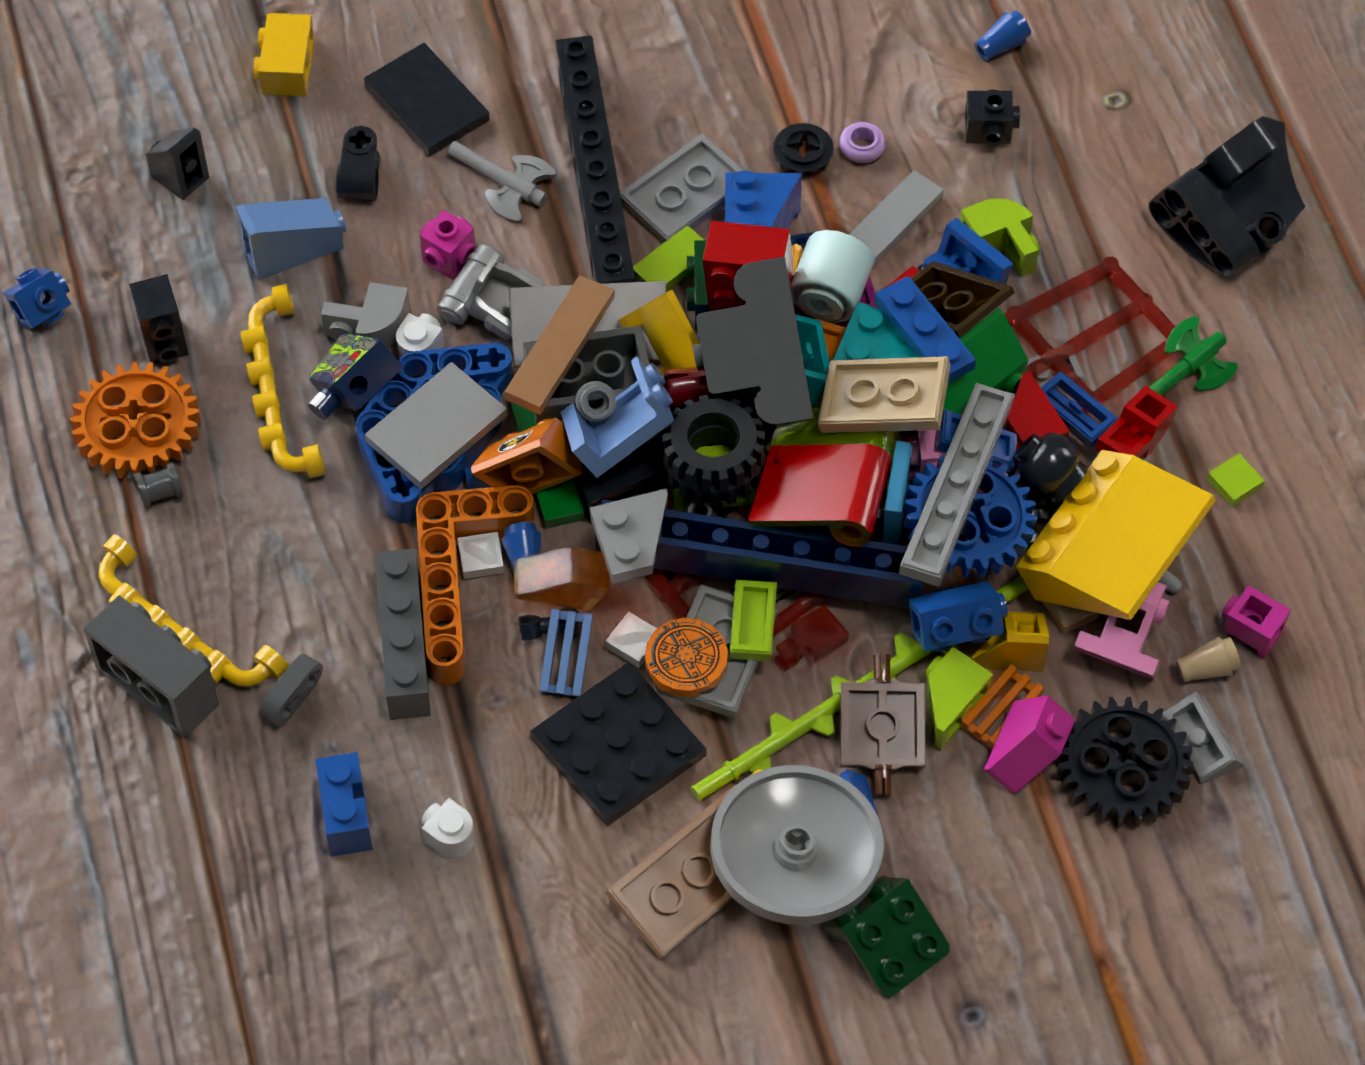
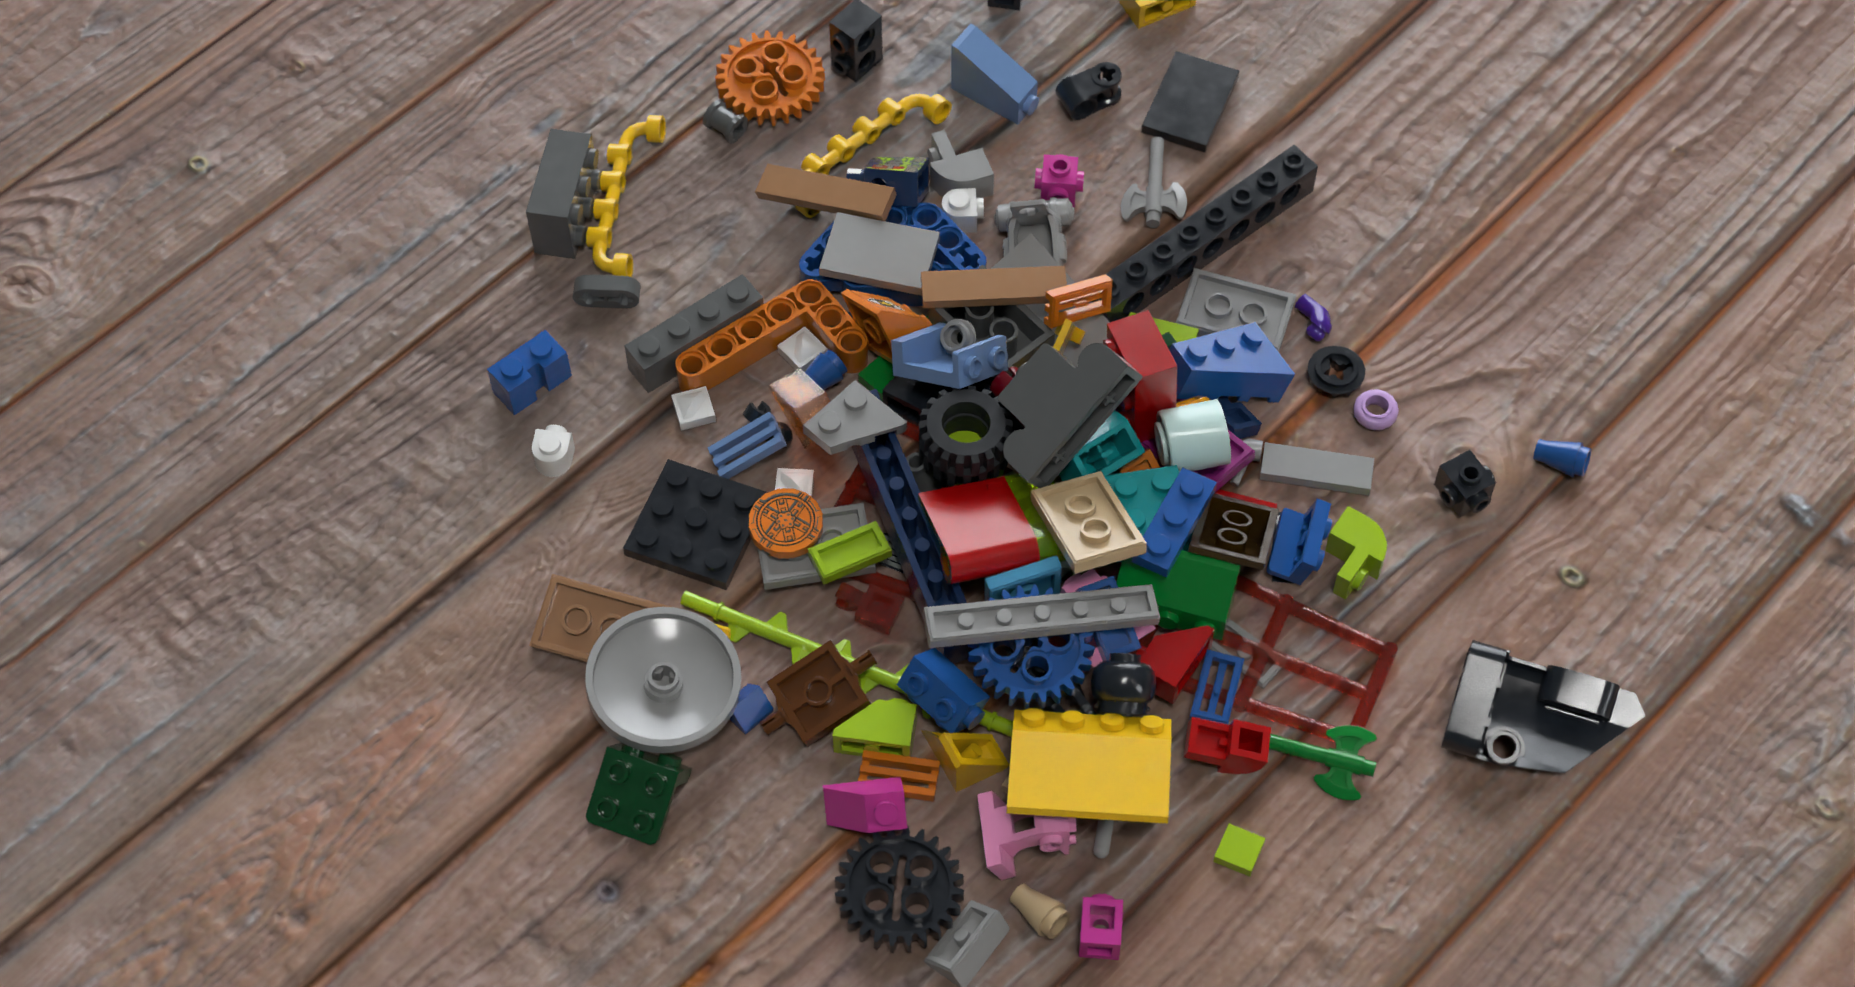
camera: 60 degrees right, 0 degrees up
(328, 435) = (825, 192): none -> medium nougat tile
(482, 681) = (693, 408): none -> white tile
(624, 286) = (1078, 295): none -> orange tile
(735, 129) = (1317, 314): none -> dark purple arm

